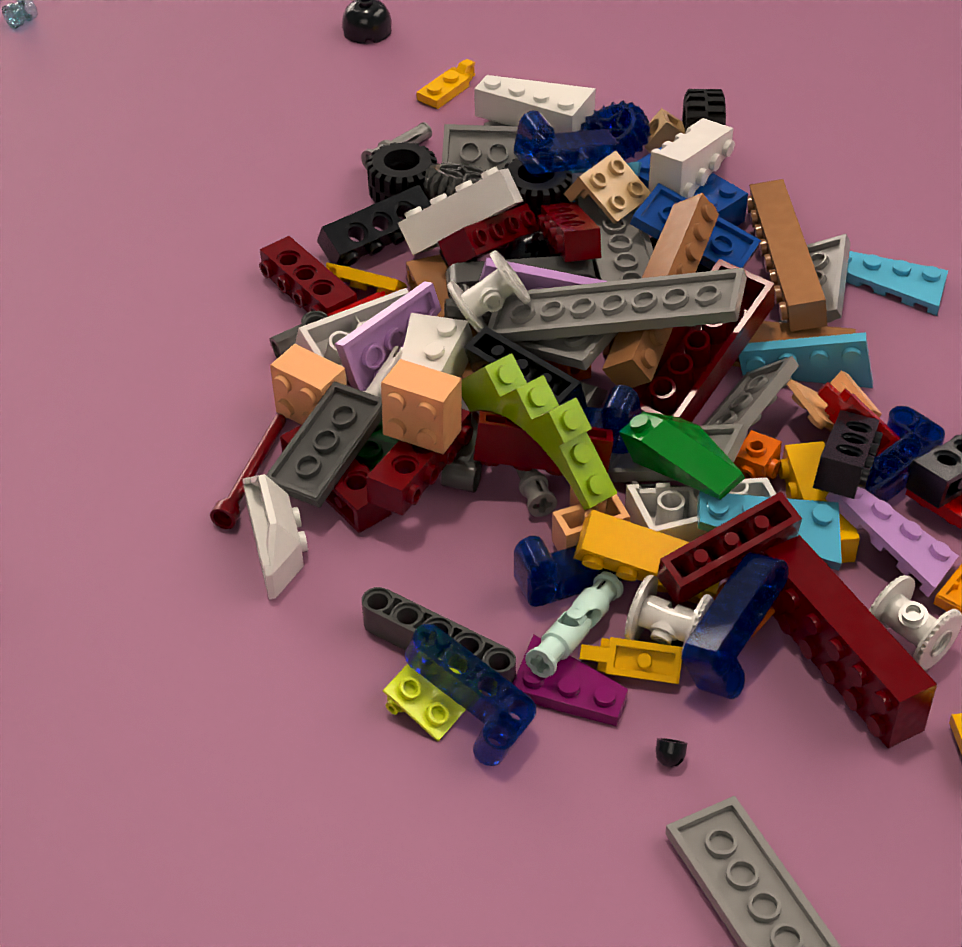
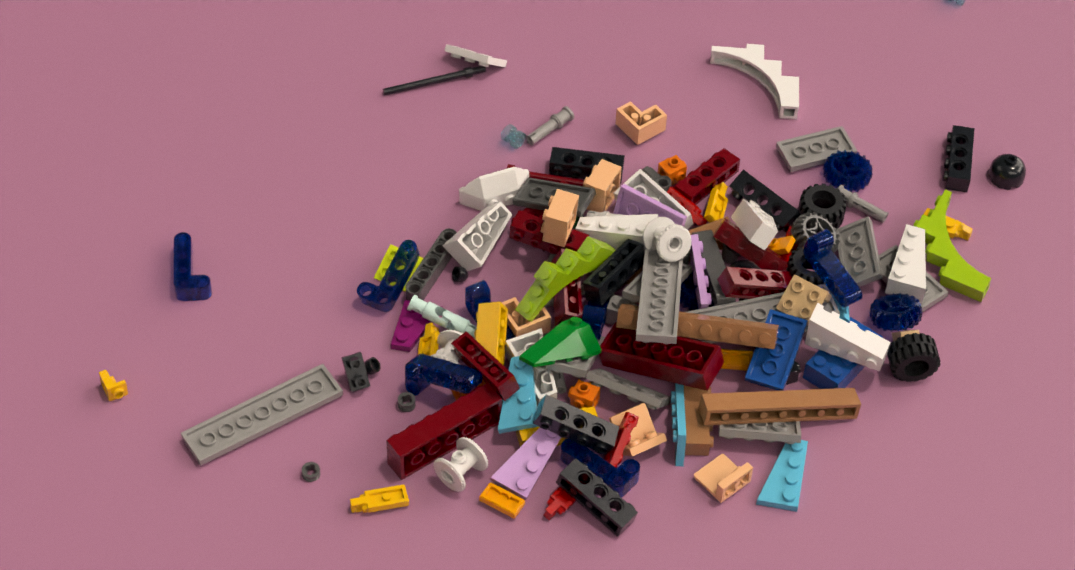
camera: 80 degrees right, 5 degrees up
(104, 194) = (768, 72): none -> white arch
(123, 444) = (556, 122): none -> light grey pin
(141, 500) = (512, 135): none -> clear light blue wheel
(169, 339) = (640, 125): none -> light nougat brick
(238, 417) = (579, 163): none -> black brick
(276, 172) = (814, 148): none -> light grey plate
(284, 310) = (673, 168): none -> orange brick
(330, 147) = (848, 170): none -> clear blue gear
(334, 52) = (959, 158): none -> black brick
(384, 557) = (476, 239): none -> white wedge
(463, 76) = (954, 270): none -> lime arch
(466, 602) = (459, 274): none -> black hinge
(696, 767) = (355, 371): none -> black hips
(753, 695) = (409, 406): none -> dark grey bush
(909, 331) = (723, 477): none -> light nougat bracket
(919, 878) = (310, 465): none -> dark grey bush

